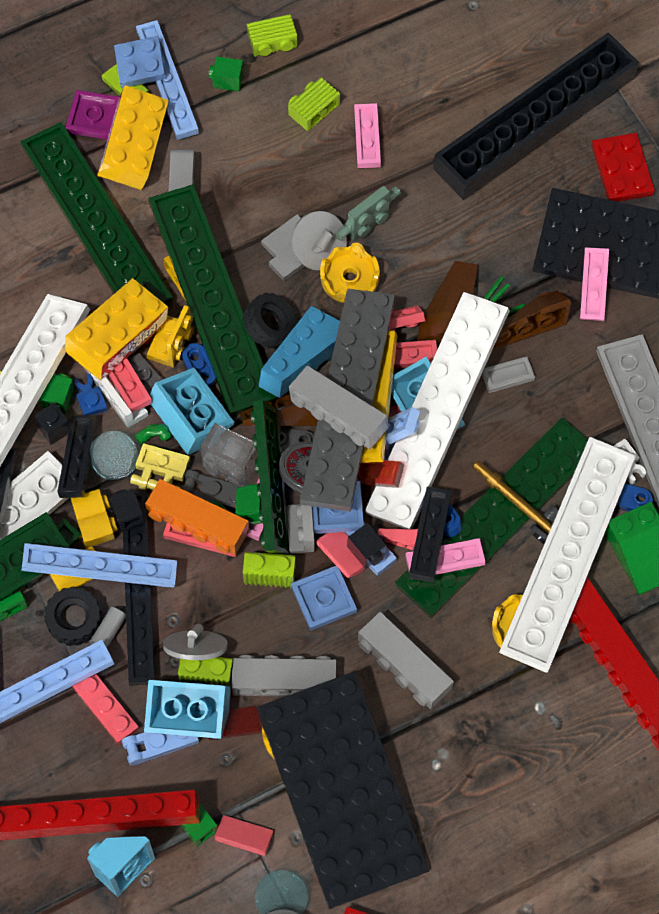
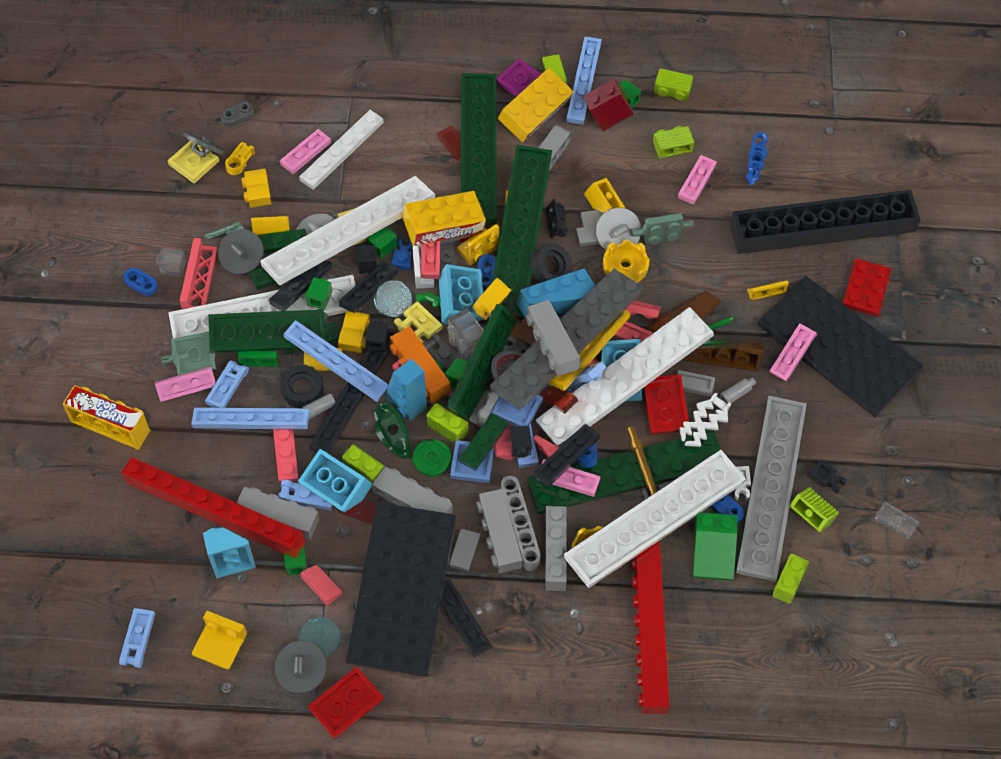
camera: 30 degrees right, 5 degrees down
(26, 494) = (319, 293): none -> green brick
(58, 229) = (452, 141): none -> clear red tile
(140, 61) = (572, 59): medium blue plate -> none
(148, 777) = (286, 512): none -> light grey brick
(193, 599) = (385, 417): none -> dark green piece
(195, 644) = (366, 444): light grey shield -> none
(206, 556) = (408, 390): none -> dark azure wedge
(217, 96) = (608, 104): none -> dark red slope
(233, 258) = (555, 212): none -> black hinge
(233, 397) = (493, 295): none -> yellow slope
(274, 618) = (431, 458): none -> green tile
(279, 210) = (602, 196): none -> yellow slope
(325, 569) = (483, 442): none -> dark green plate
(379, 703) = (464, 550): none -> light grey tile
(417, 77) = (756, 157): none -> blue animal
(418, 627) = (521, 531): none -> light grey beam
(430, 786) = (464, 620): none -> black plate
(478, 646) = (555, 549): none -> light grey brick
(497, 417) = (665, 404): none -> red plate
(520, 225) = (767, 290): none -> yellow slope
(559, 359) = (737, 390): none -> light grey cylinder
(561, 397) = (721, 416): none -> white piece

